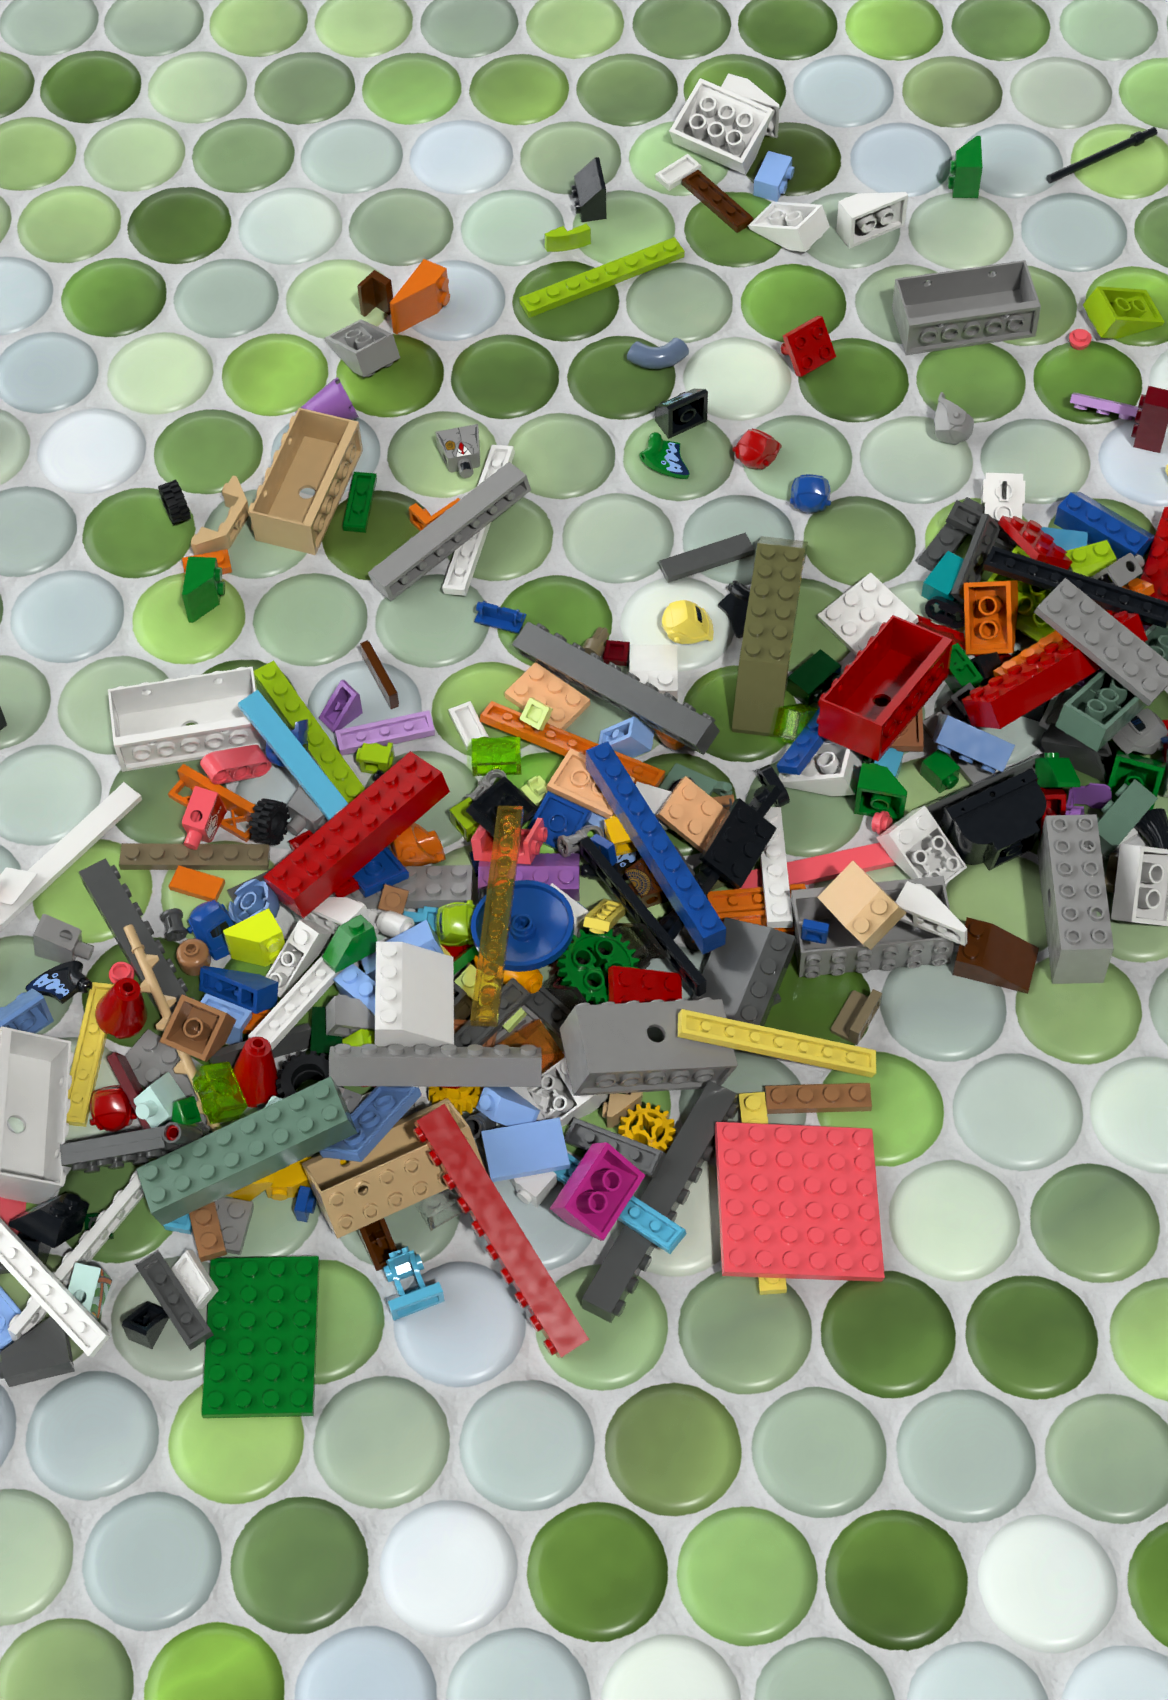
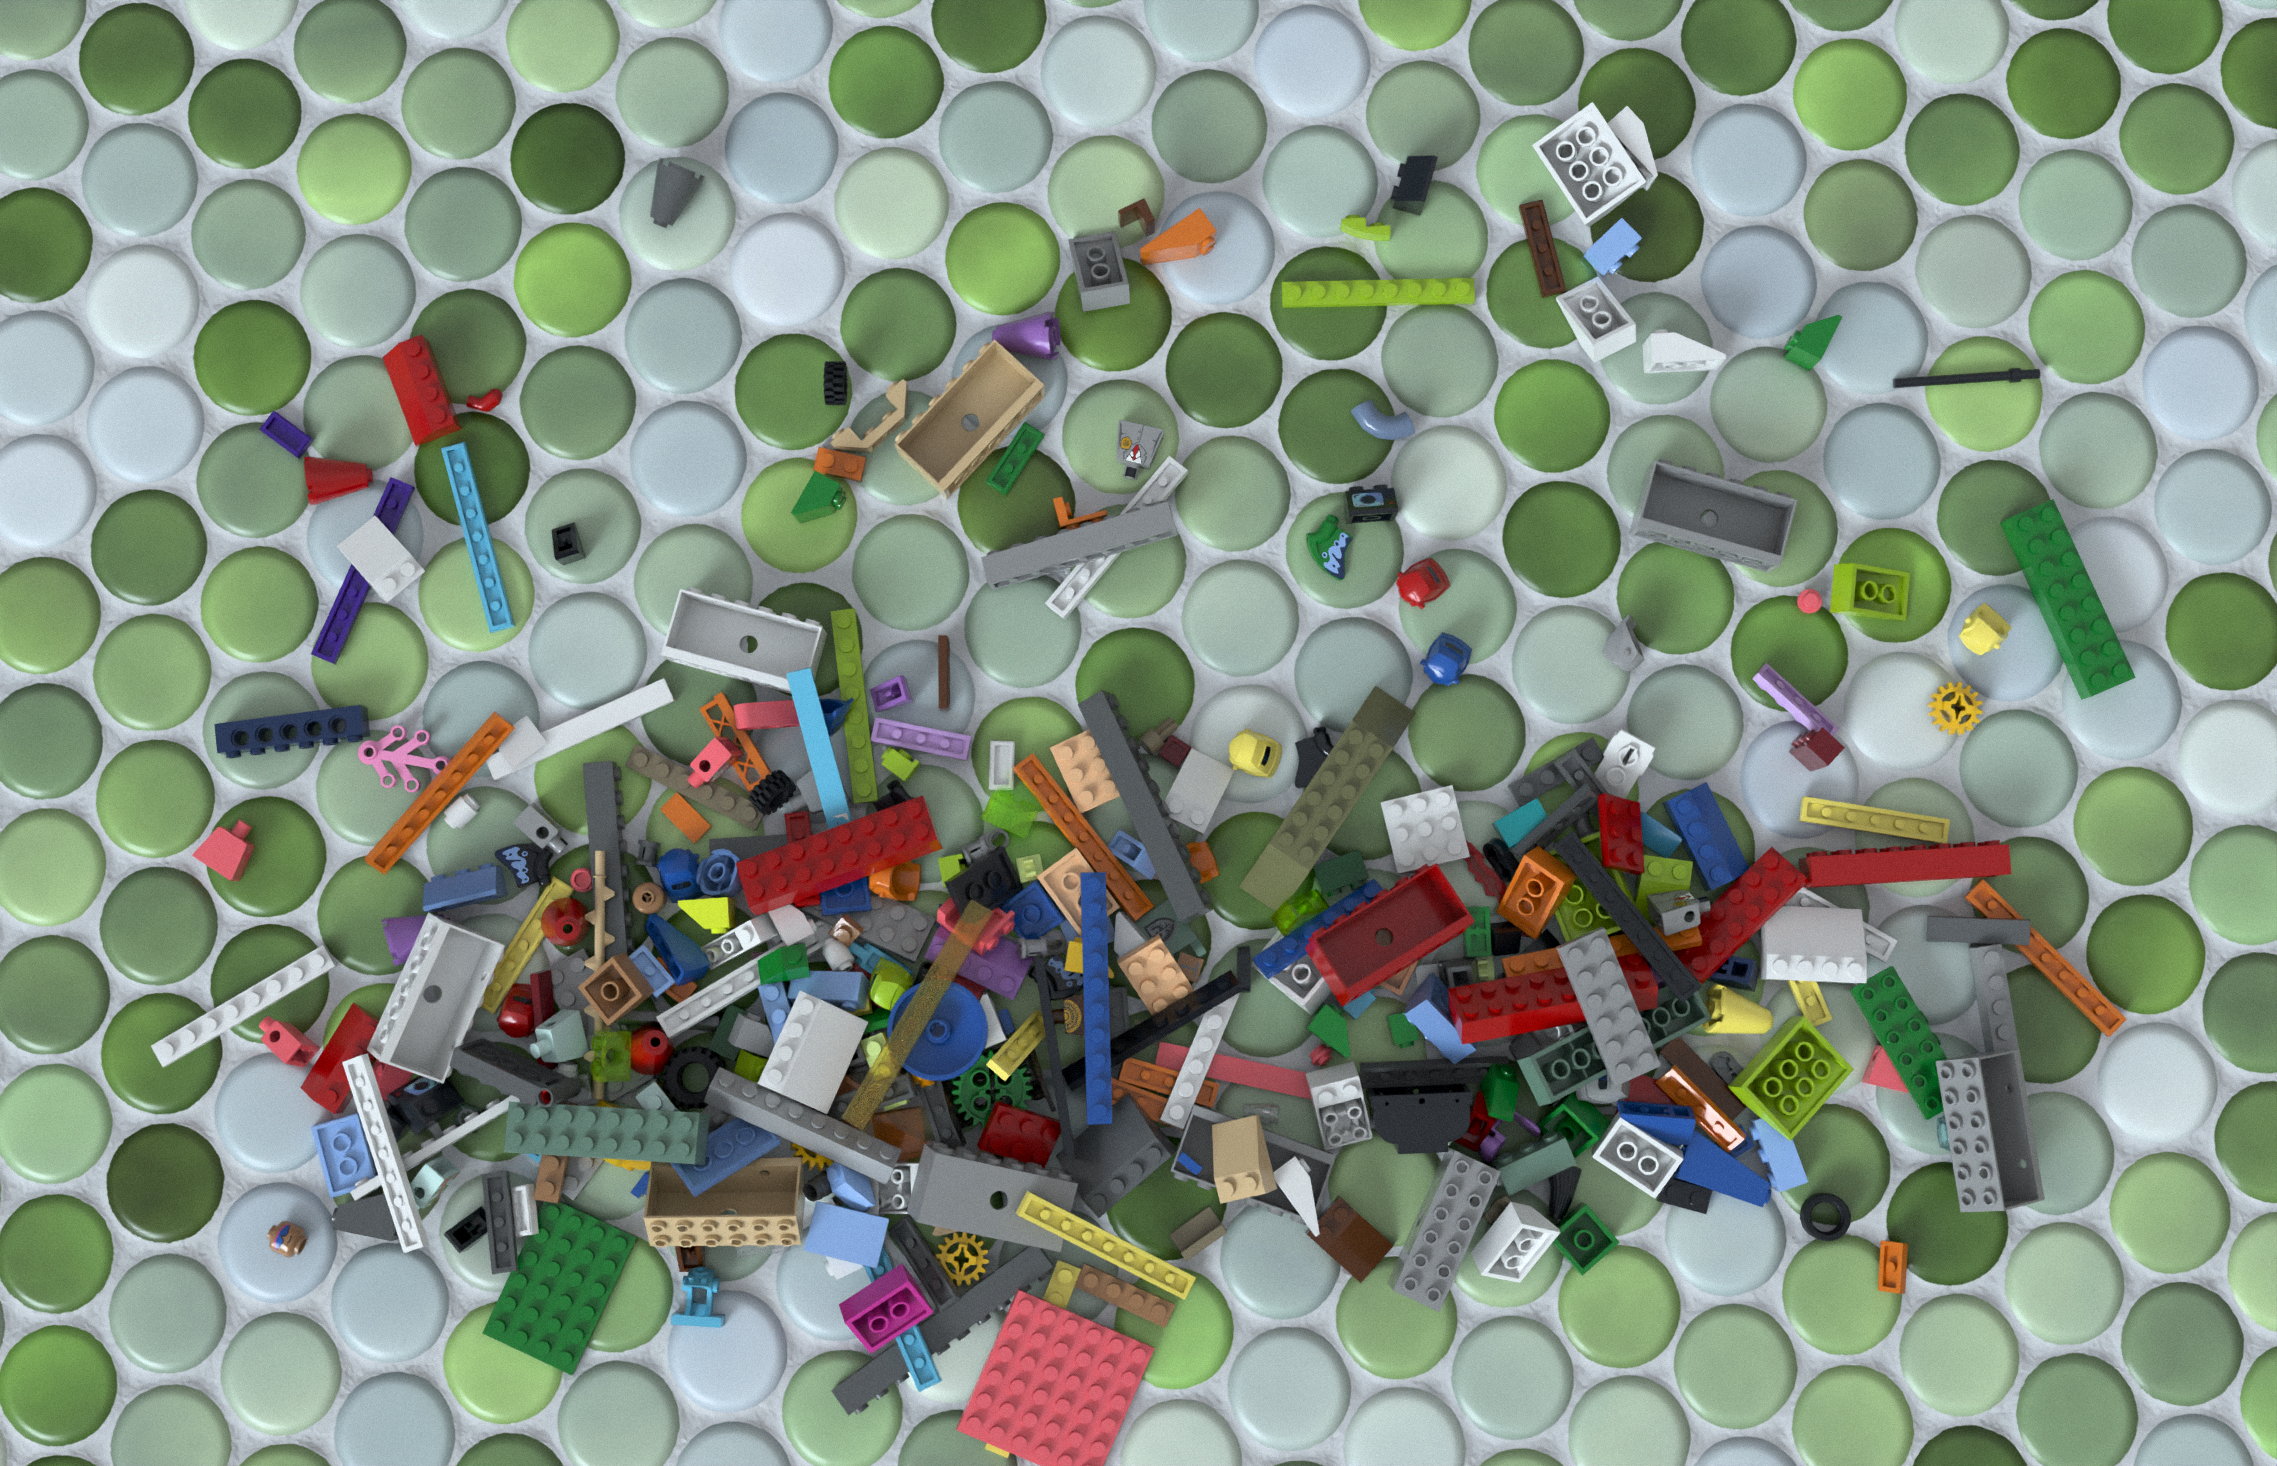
camera: 25 degrees right, 25 degrees up
(186, 1111) = (574, 1063): green slope -> none
(499, 617) = (1085, 660): blue hinge -> none
(501, 1231) = (783, 1312): red brick -> none
(536, 714) = (1063, 794): yellowish green tile -> none
(606, 847) = (1056, 966): blue tile -> none
(675, 172) = (1521, 191): white tile -> none
(706, 557) = (1311, 684): dark grey tile -> none
(737, 843) = (1173, 1028): black plate -> none
(808, 346) = (1533, 488): red plate -> none

